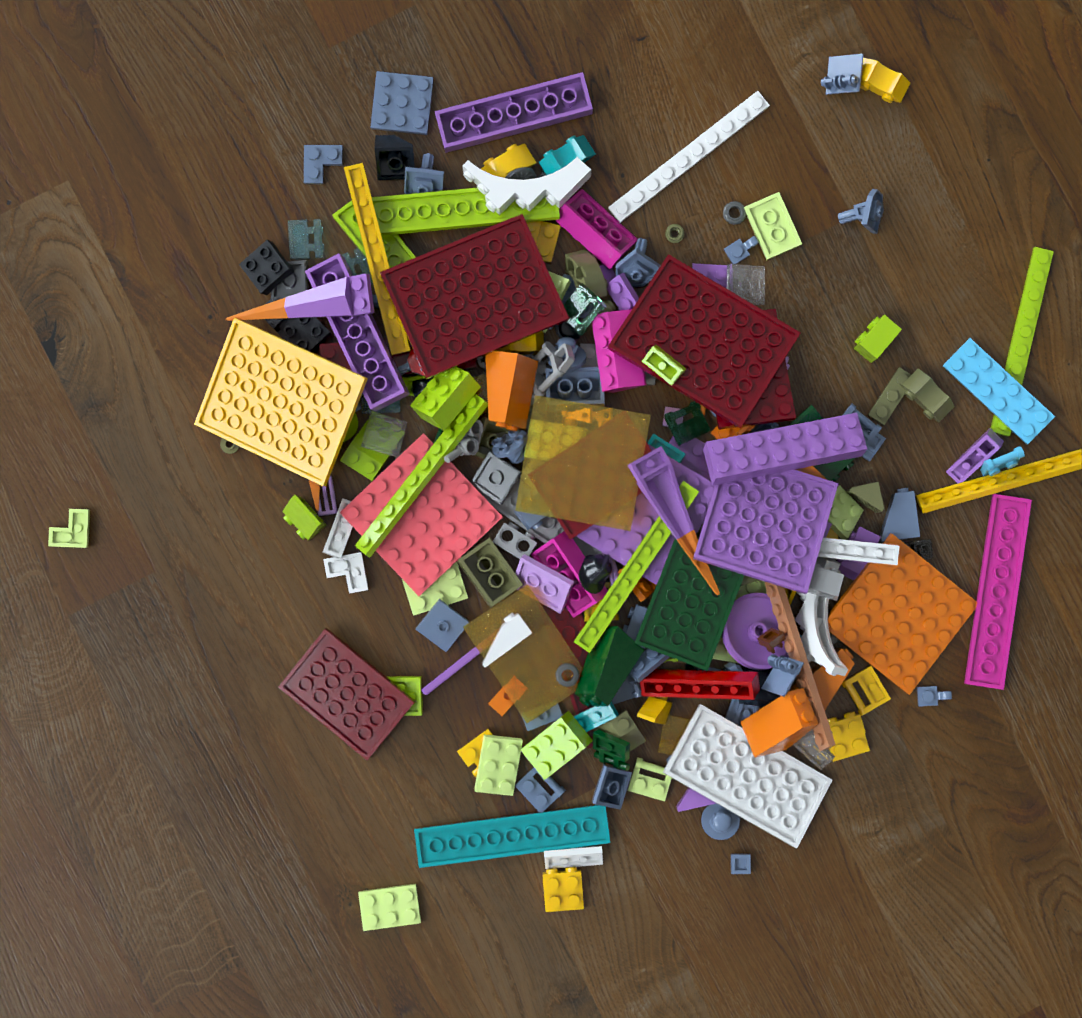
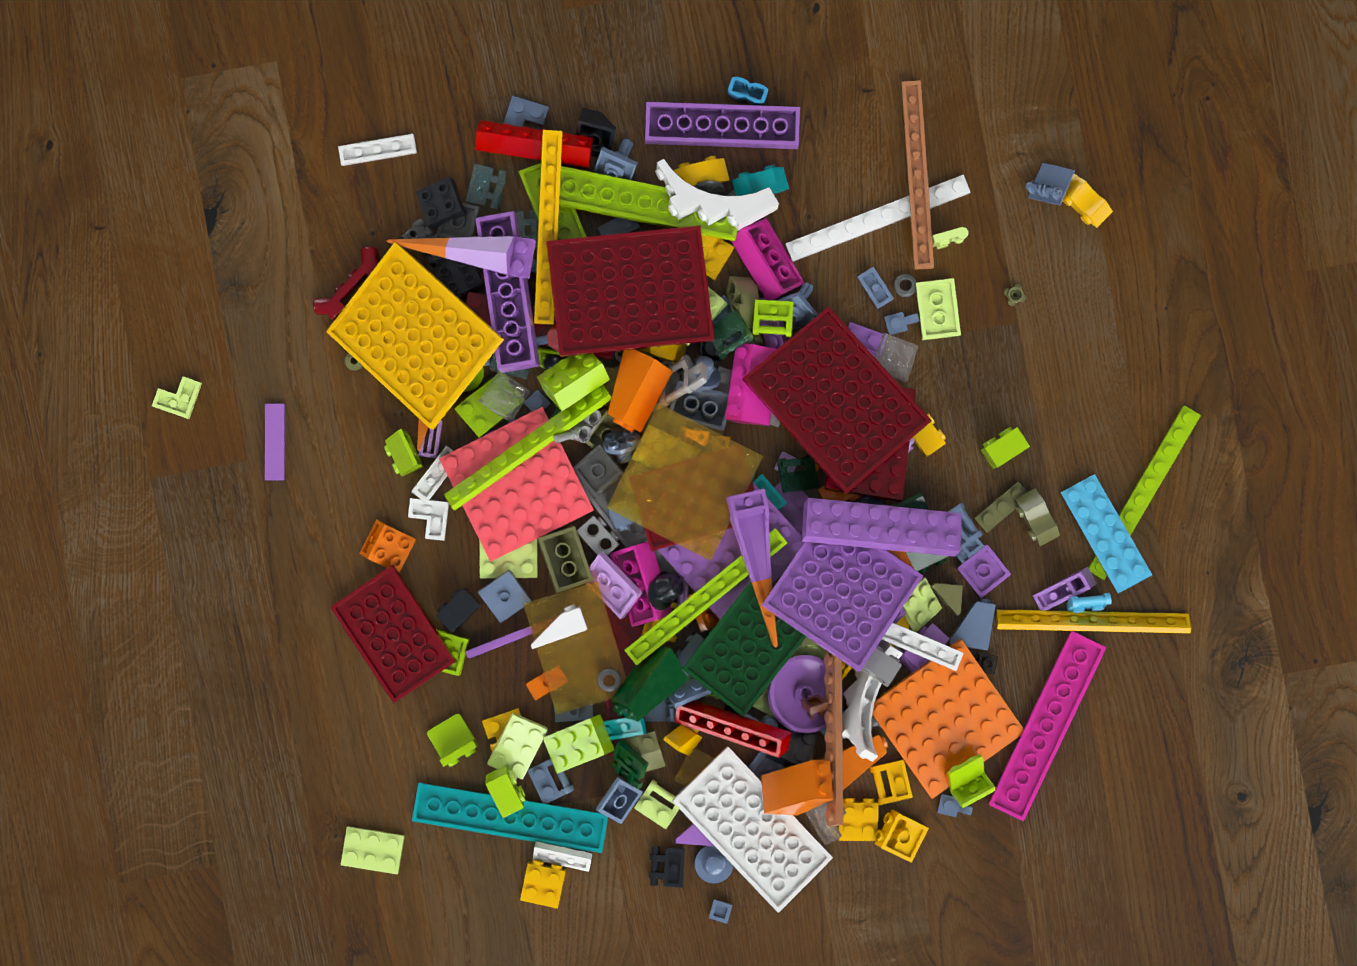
camera: 20 degrees right, 0 degrees up
(177, 544) = (274, 441): none -> medium lavender tile
(190, 235) = (377, 149): none -> white tile
(193, 398) = (333, 305): none -> dark red plate
(253, 300) = (418, 231): none -> dark grey plate
(315, 611) = (387, 546): none -> orange bracket
(333, 185) = (528, 143): none -> red brick
(402, 103) = (618, 83): sand blue plate -> none
(402, 651) = (459, 609): none -> black brick
(416, 429) = (537, 401): none -> sand blue plate
(434, 778) = (452, 740): none -> lime bracket
(443, 238) = (618, 226): none -> sand blue plate
(500, 812) = (504, 790): none -> lime brick
(523, 73) = (742, 90): none -> dark azure brick
(618, 274) = (773, 311): none -> lime plate
(663, 364) = (790, 411): lime slope -> none
(674, 227) = (841, 281): olive plate -> none
(683, 836) = (673, 868): none -> black plate
(706, 223) = (875, 288): none -> sand blue plate
(714, 103) = (917, 175): none -> nougat plate
(757, 157) = (943, 239): none -> yellowish green plate
(782, 674) = (813, 742): sand blue hinge -> none
(803, 352) = (929, 439): none -> yellow brick
(841, 185) = (1020, 295): none -> olive plate
(867, 212) = (1033, 324): sand blue piece -> none
(890, 739) = (900, 835): none -> yellow plate
(892, 462) = (983, 571): none -> medium lavender plate
(940, 667) = (969, 781): none -> lime bracket

